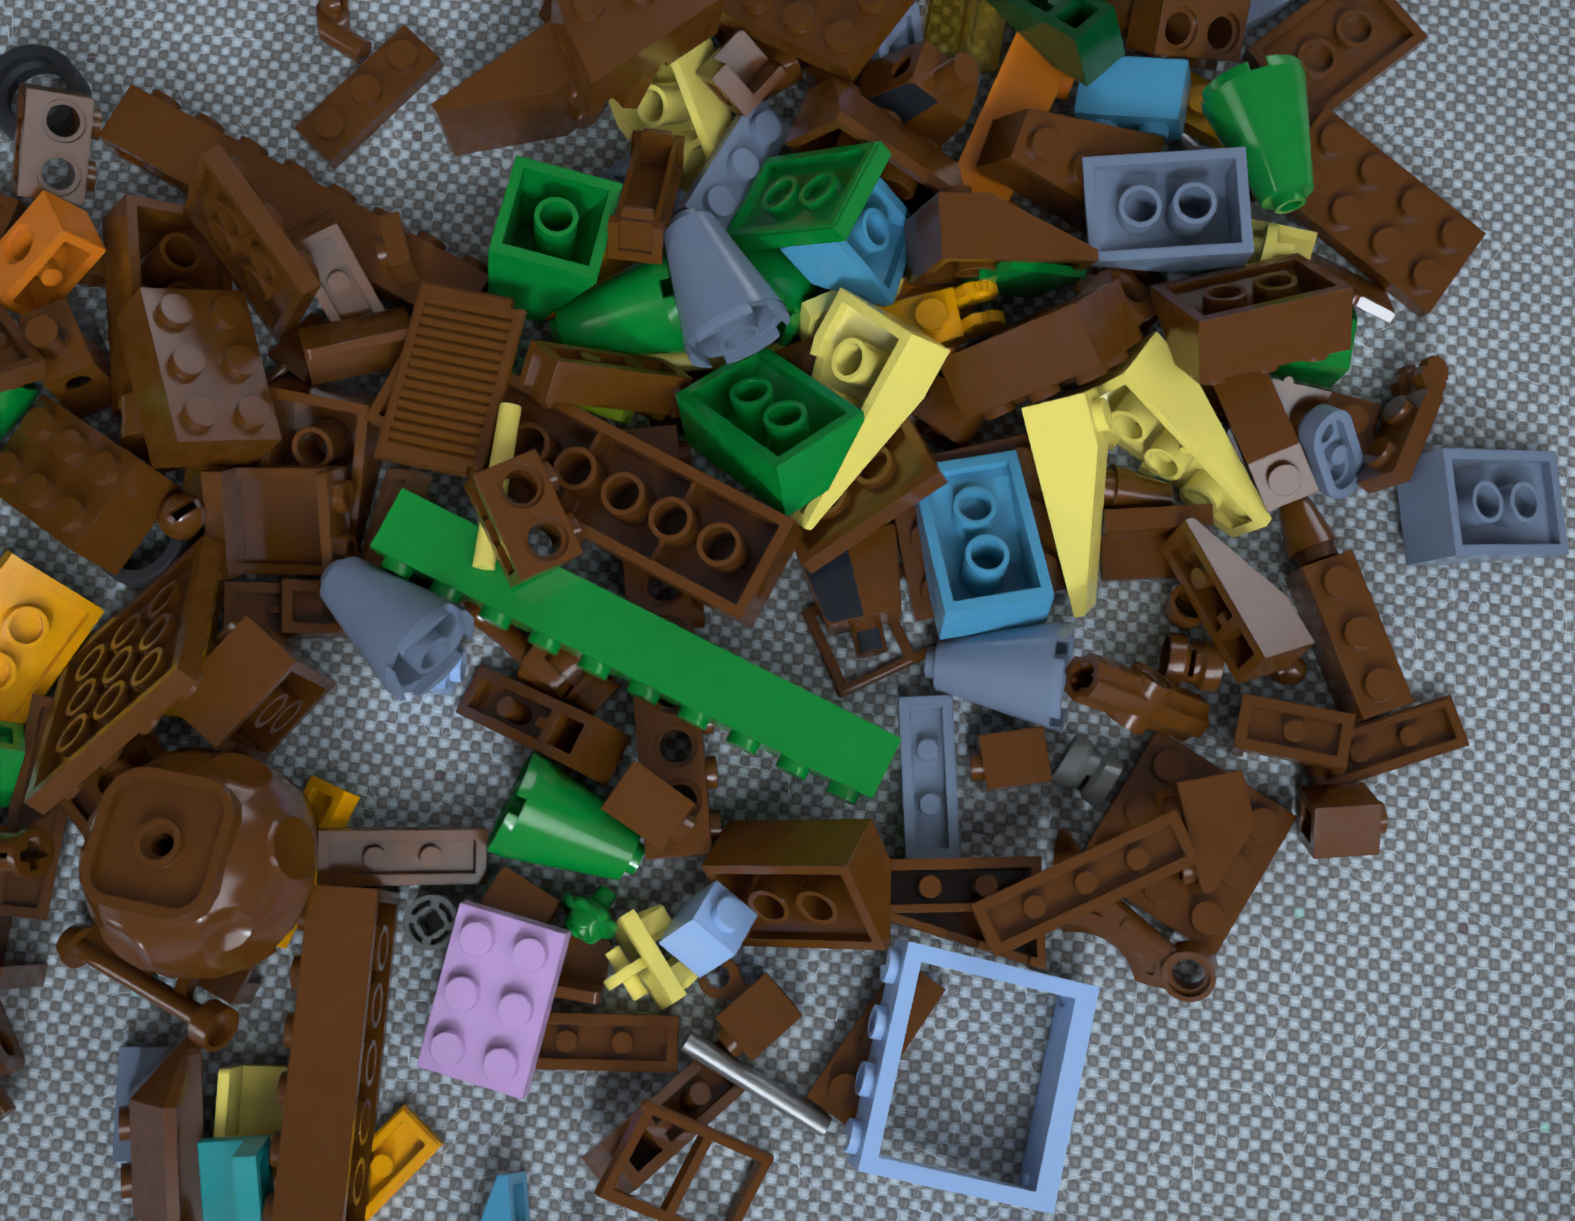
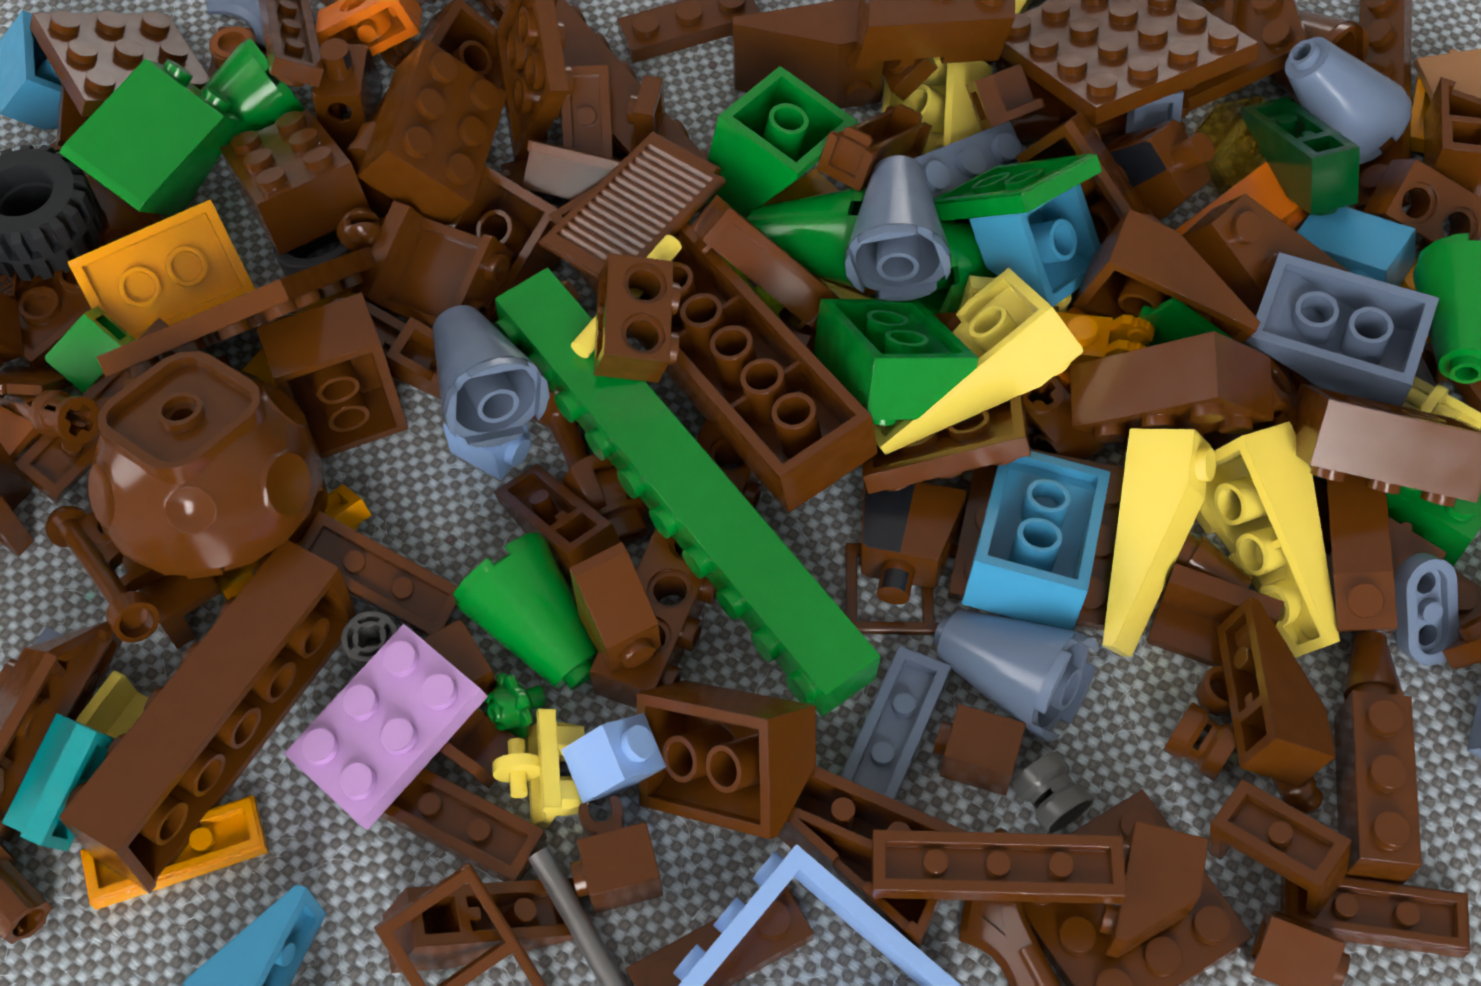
camera: 30 degrees right, 20 degrees down
(1136, 697) = (1132, 733): reddish brown piece -> none

